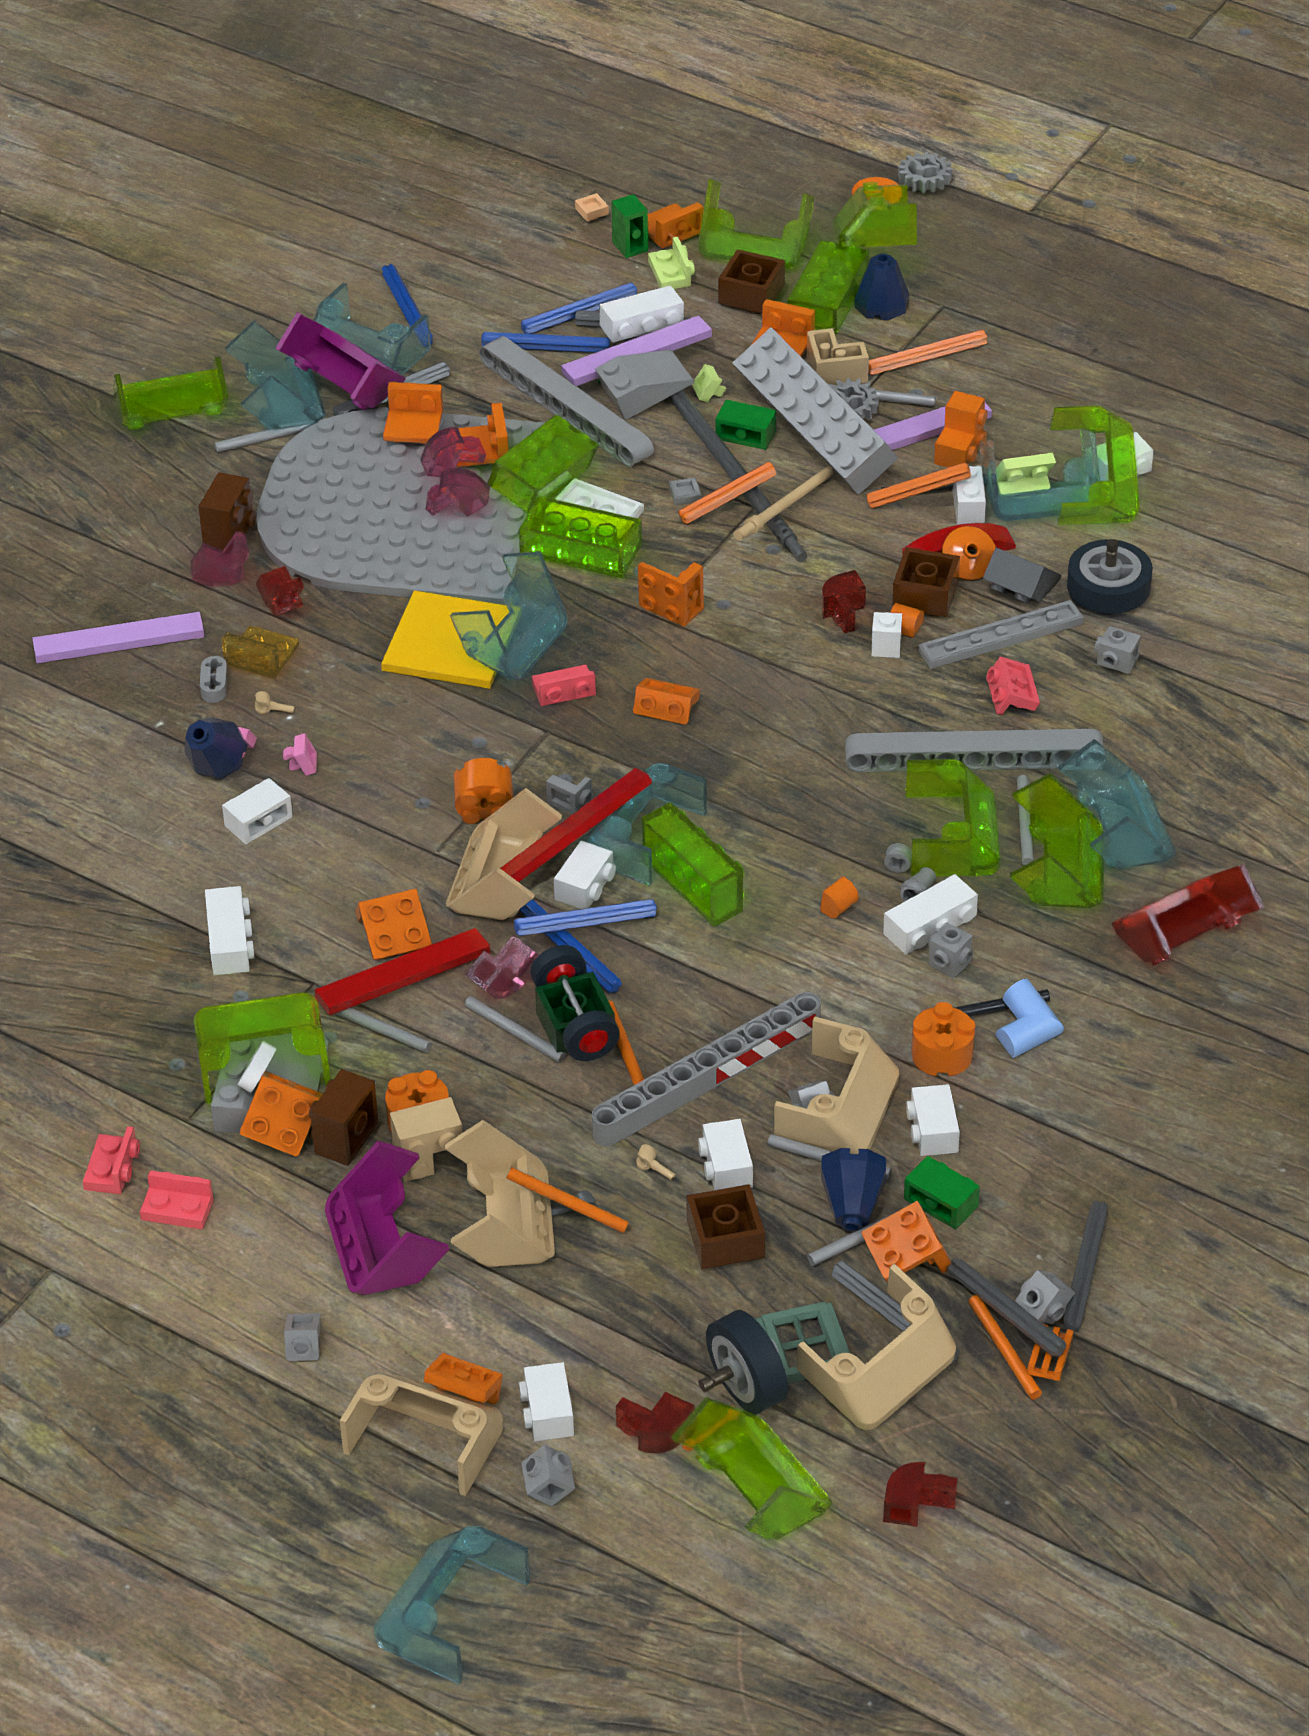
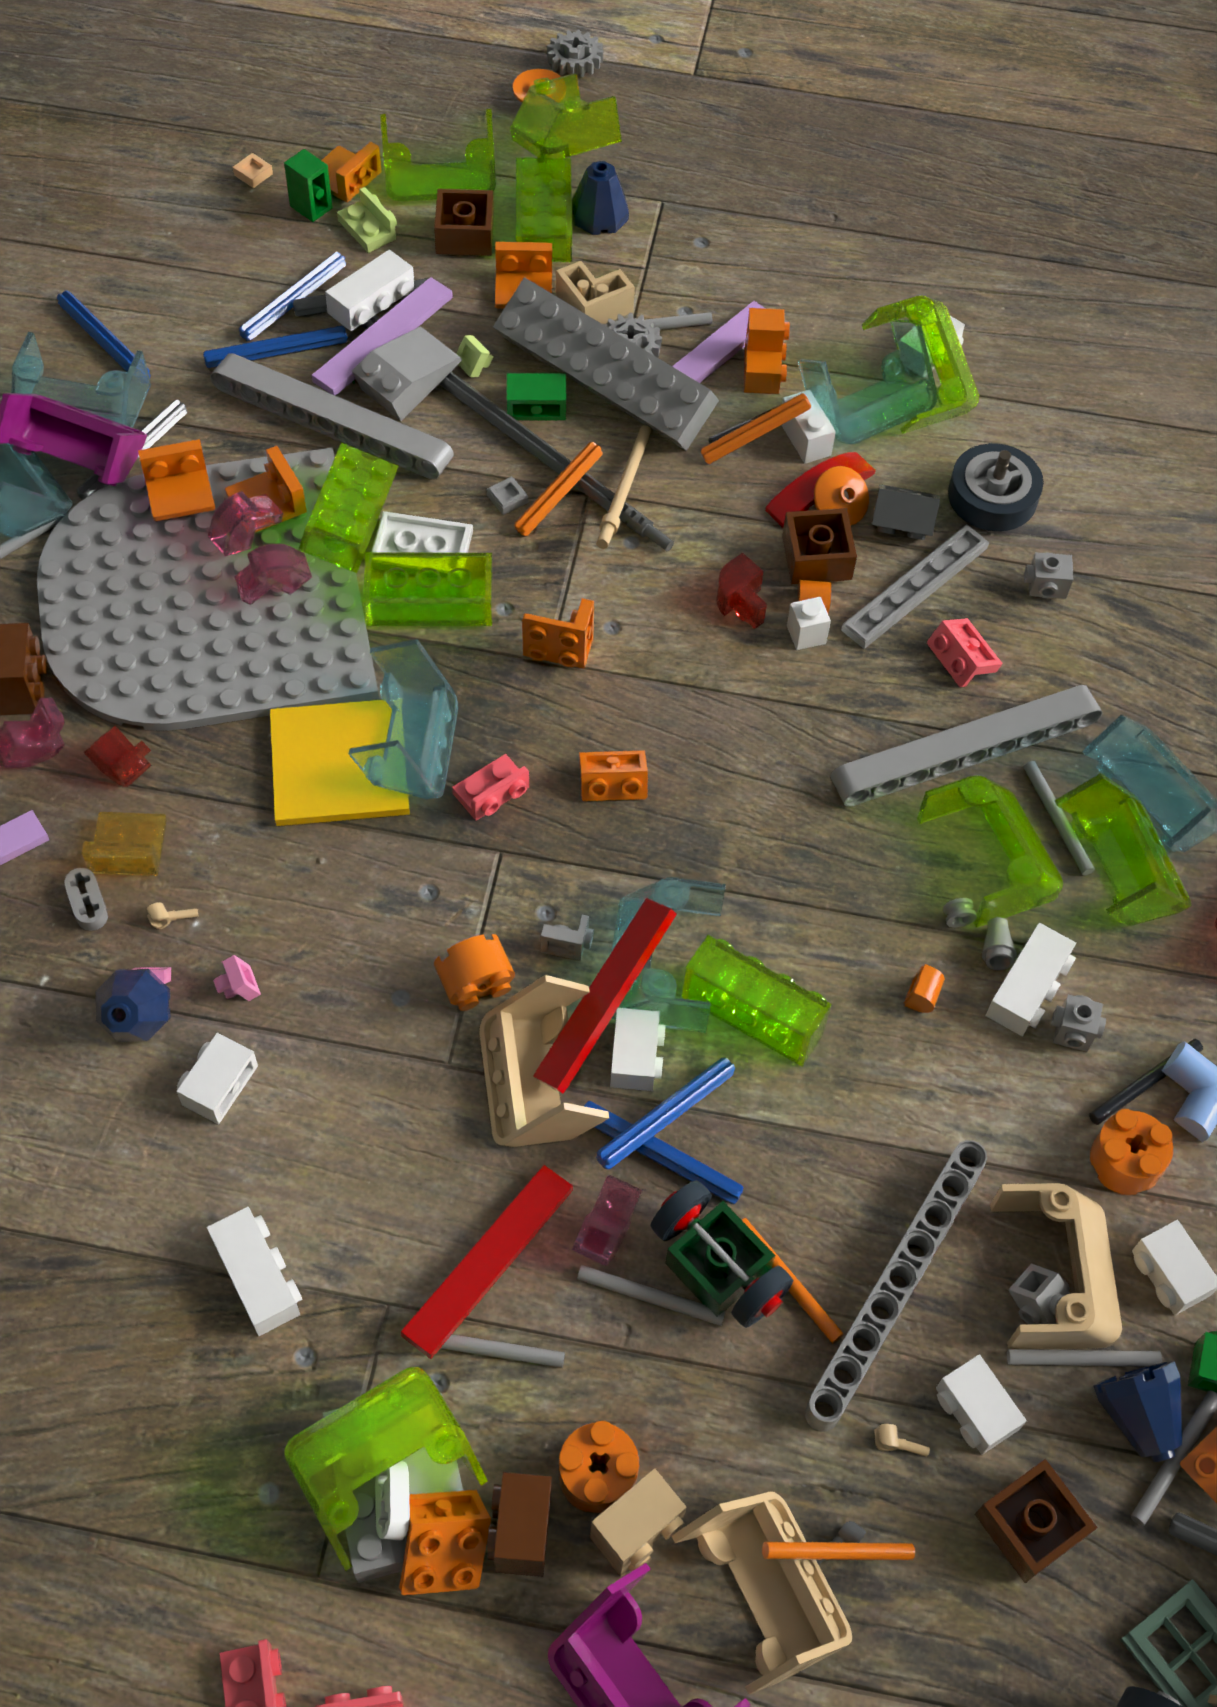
camera: 25 degrees left, 15 degrees up
(394, 924) = (448, 1192): orange bracket -> none
(927, 352) = (679, 259): orange axle -> none
(1024, 473) = (857, 386): yellowish green bracket -> none

